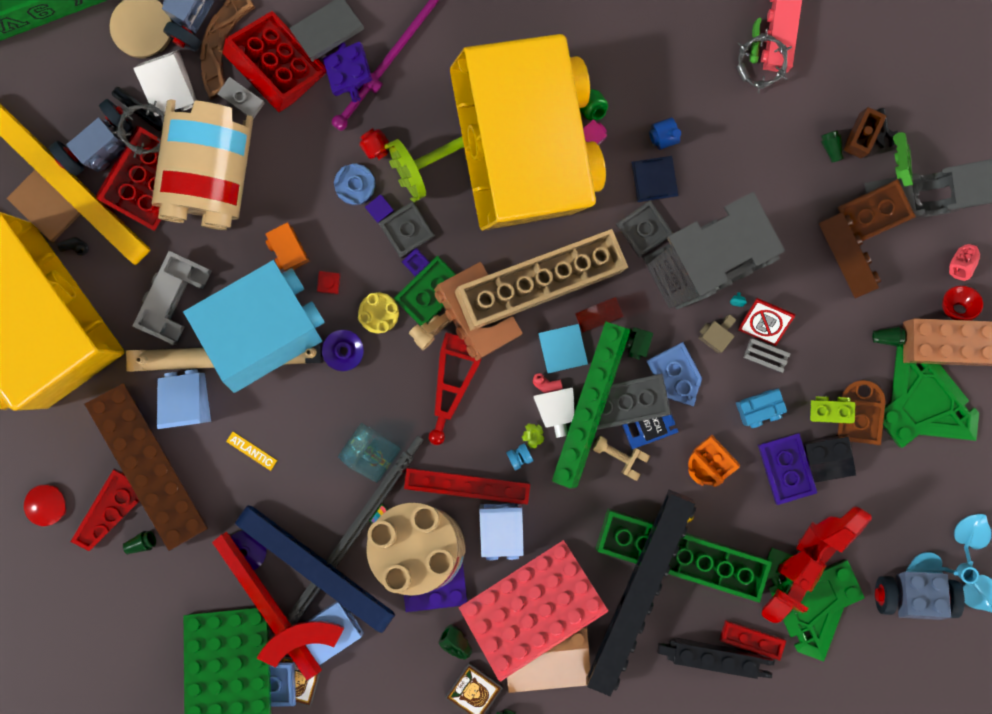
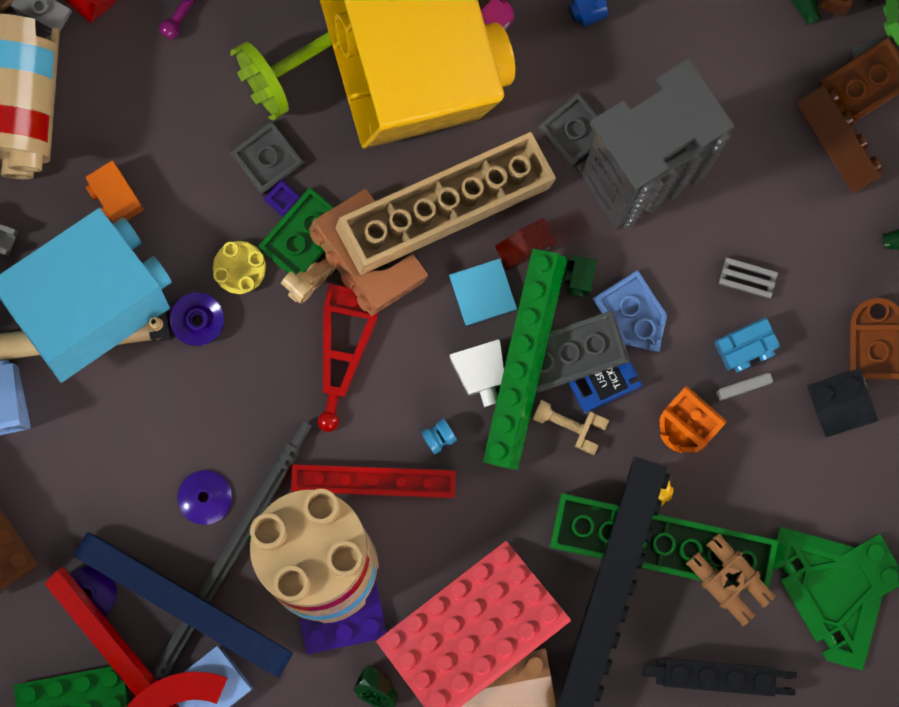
camera: 10 degrees left, 5 degrees down
(251, 451) = (87, 462): yellow sticker -> none
(328, 282) = (171, 234): red plate -> none
(348, 481) = (217, 504): none -> dark purple dish
(354, 184) = (195, 105): medium blue tile -> none
(368, 453) = (241, 448): clear light blue slope -> none
(374, 143) = (215, 52): red head -> none
(379, 208) = (229, 134): dark purple tile -> none
(501, 530) = (423, 534): light blue slope -> none
(533, 435) = (455, 407): lime plant -> none
(545, 385) = (463, 341): coral arm -> none
(654, 178) = (582, 65): dark blue piece -> none
(717, 335) = (680, 257): dark tan brick -> none
(723, 592) = (729, 595): none -> medium nougat pin
(738, 300) = (704, 211): teal rock -> none
(752, 640) = (767, 651): red tile -> none
(756, 439) = (744, 386): none -> light grey tile
(766, 322) = (742, 234): piece -> none
(787, 468) = (789, 421): dark purple plate -> none
(806, 567) = (835, 523): red piece -> none
(832, 411) = (837, 339): lime bracket -> none

